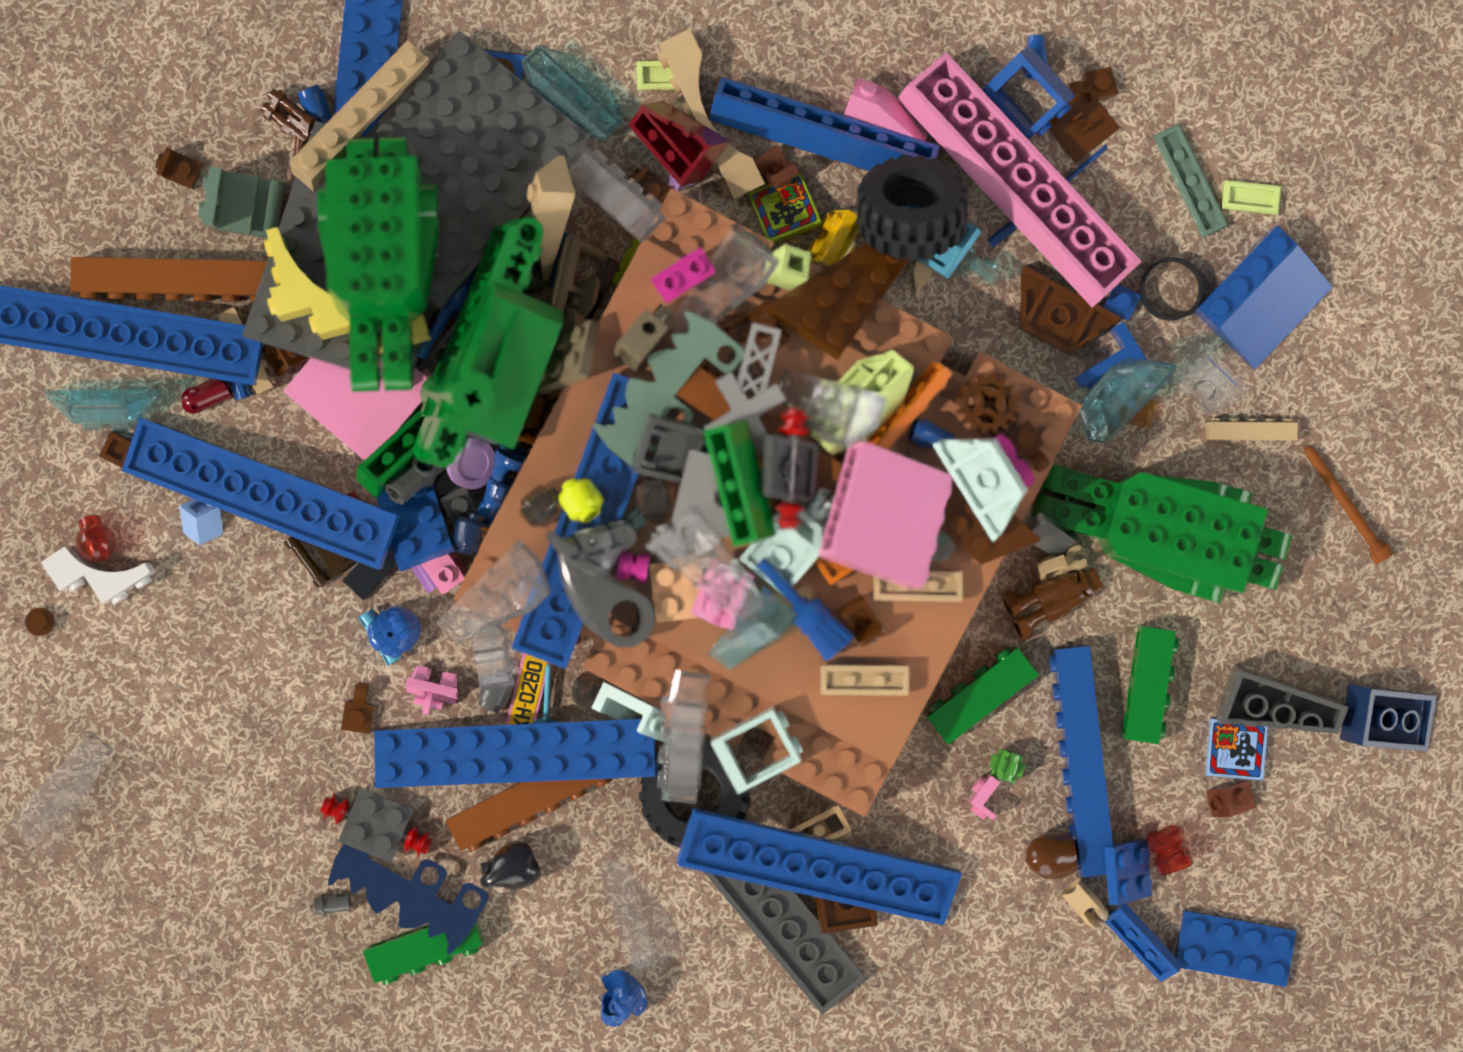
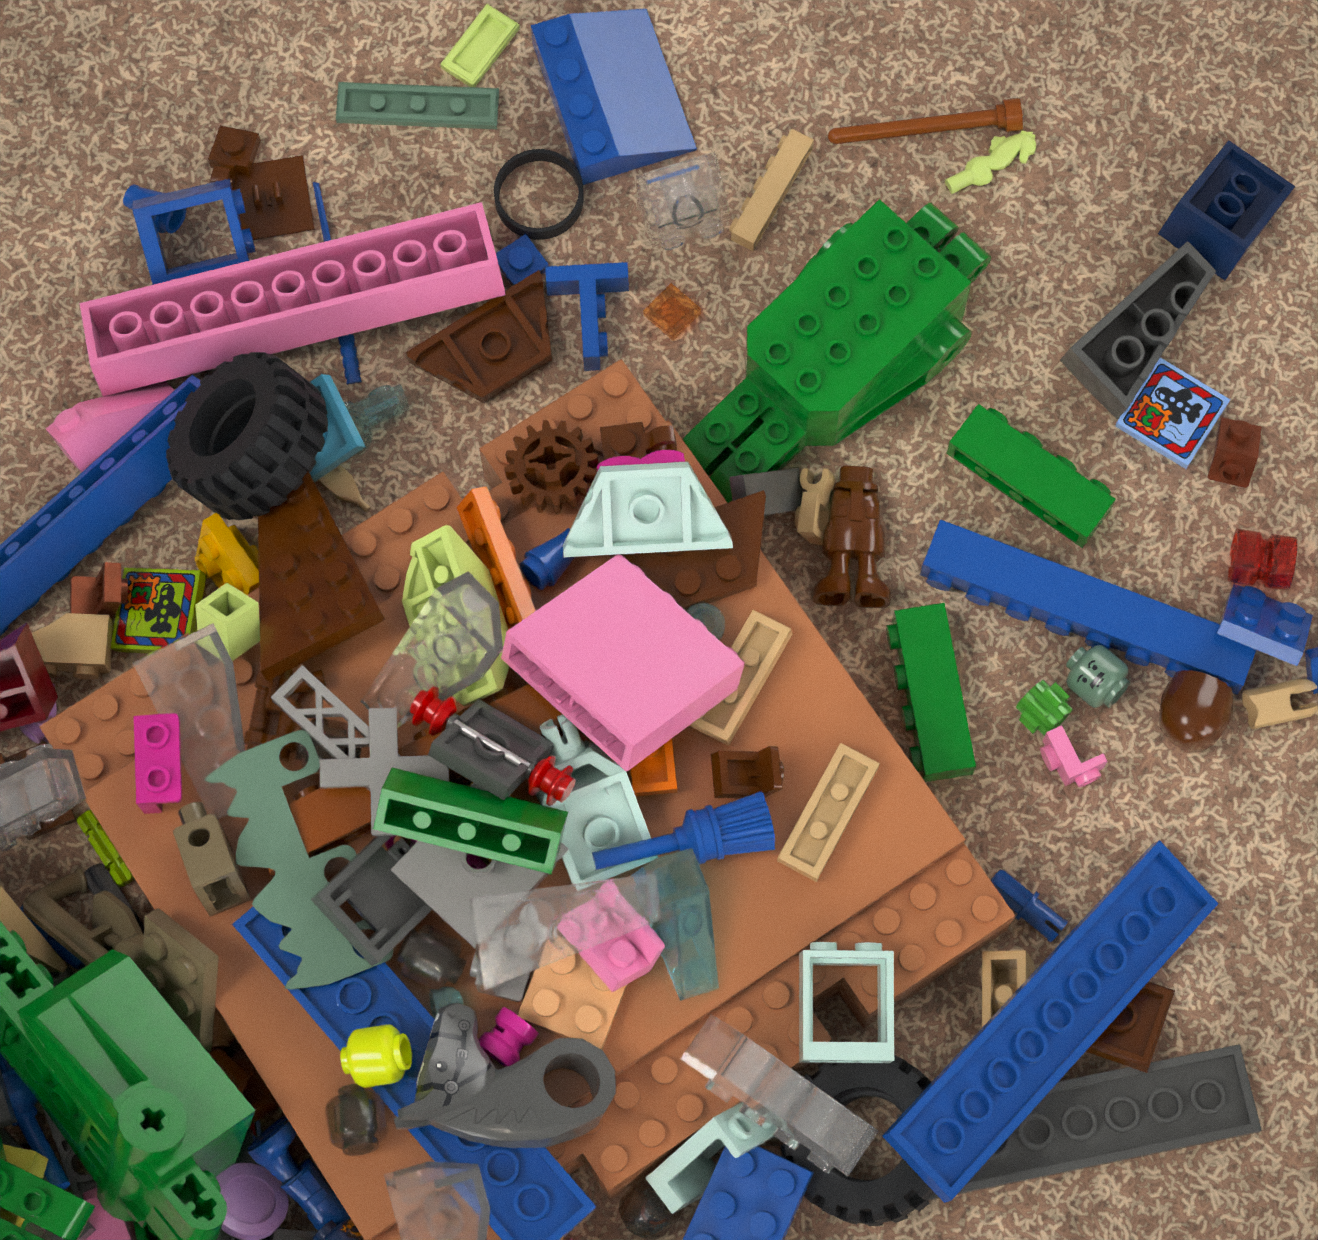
camera: 60 degrees left, 15 degrees down
(883, 814) = (1027, 905): none -> blue axle
(1043, 787) = (1097, 676): none -> sand green head
(1121, 395) = (637, 311): clear light blue wedge -> none
(1352, 560) = (1002, 151): none -> yellowish green animal

